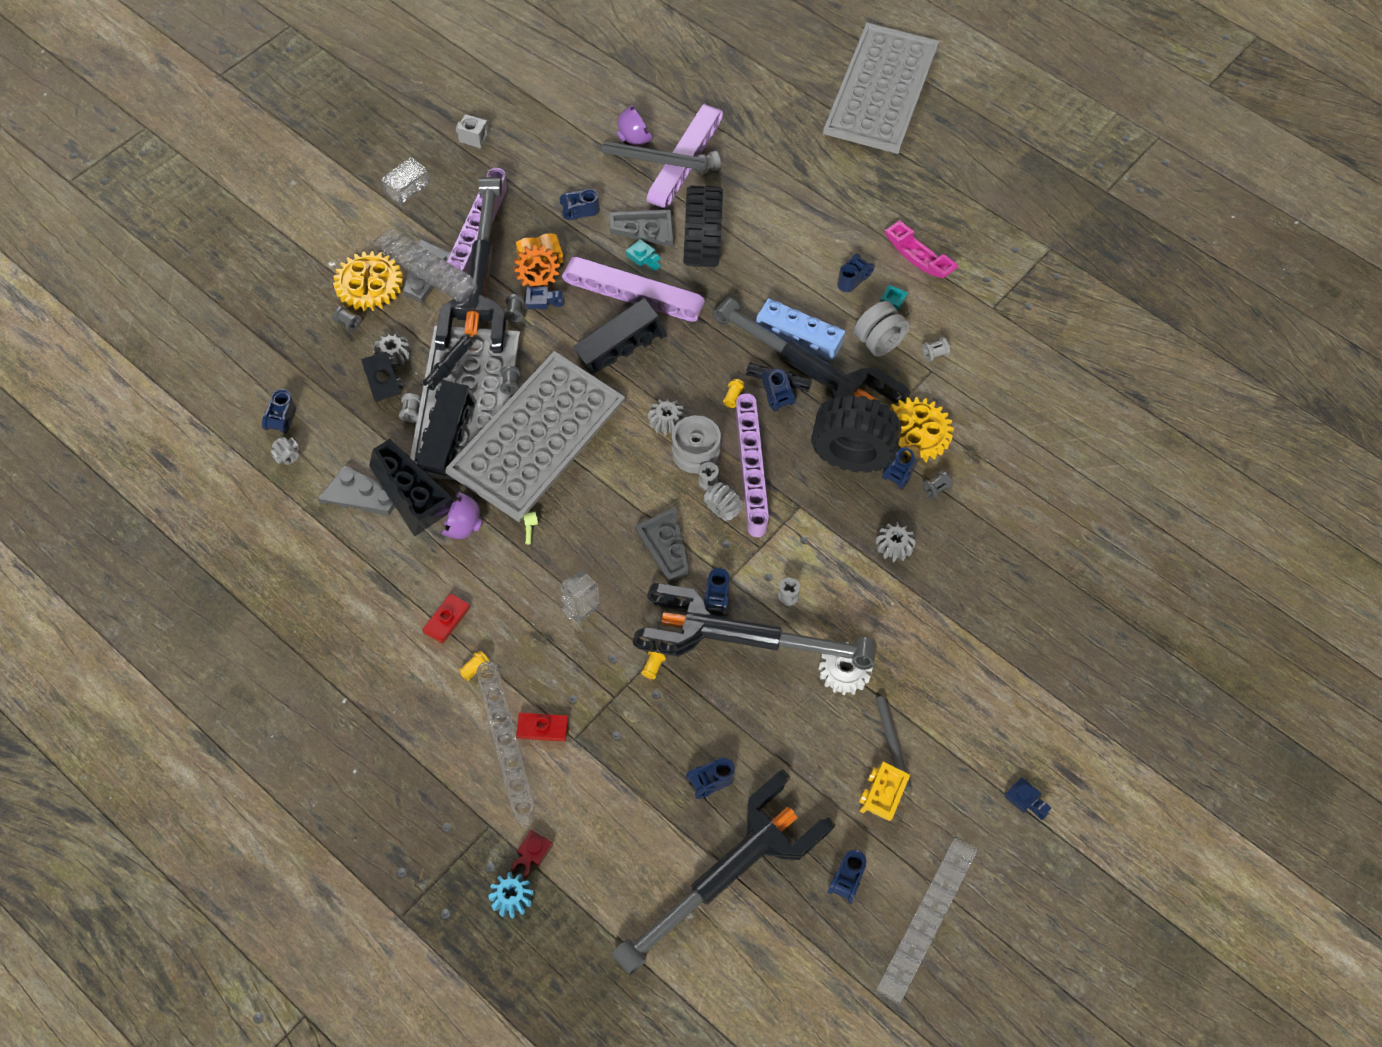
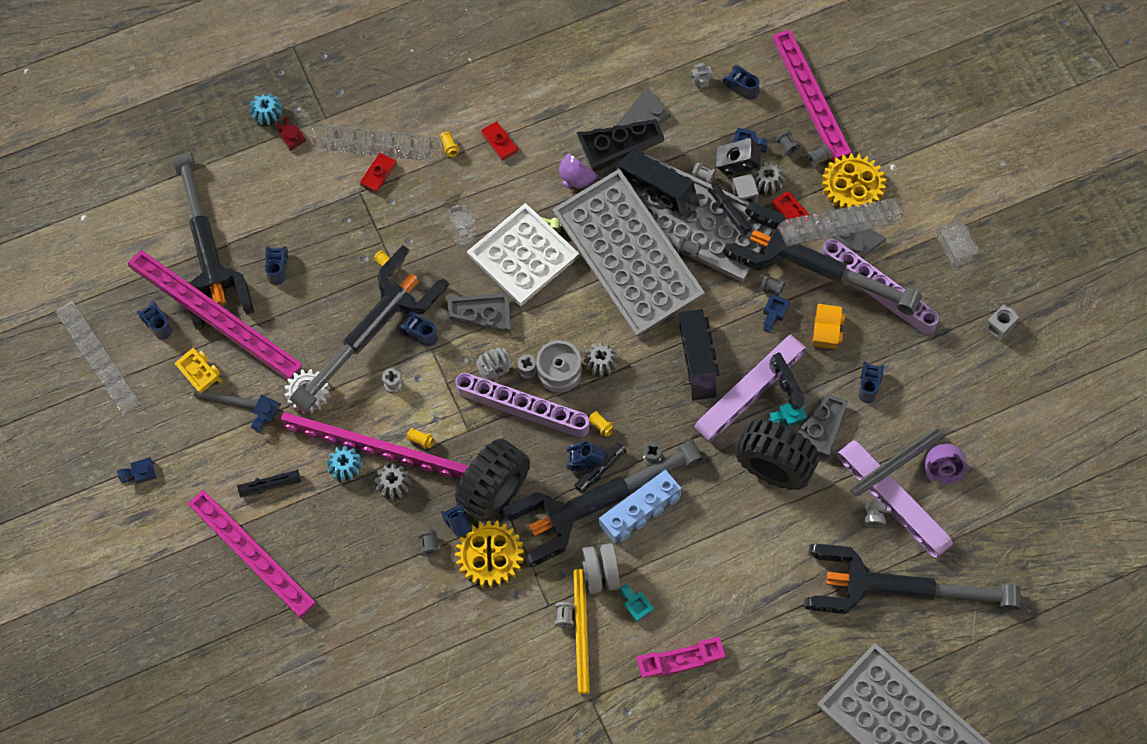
camera: 120 degrees right, 5 degrees up
(269, 352) = (811, 94): none -> dark pink plate
(341, 349) = (787, 142): none -> dark grey bush
(353, 385) = (742, 134): none -> dark blue plate
(412, 362) = (745, 188): none -> light grey panel
(421, 321) = (789, 206): none -> red plate
(527, 267) = (804, 311): orange gear -> none
(580, 533) = (523, 254): none -> white plate
(618, 251) = (787, 381): none -> black hinge
(743, 336) = (653, 448): none -> dark grey bush
(773, 154) = (863, 582): none -> black piece
(814, 807) = (214, 315): none -> dark pink plate
(835, 535) = (420, 438): none -> yellow pin
(854, 273) = (684, 589): dark blue piece -> none
(870, 578) = (373, 446): none -> dark pink plate
(890, 700) = (266, 410): none -> dark blue plate
(900, 602) = (339, 458): none -> medium azure gear
(946, 331) = (581, 632): none -> yellow axle
(960, 655) = (268, 483): none -> black pin
(1043, 640) = (252, 554): none -> dark pink plate

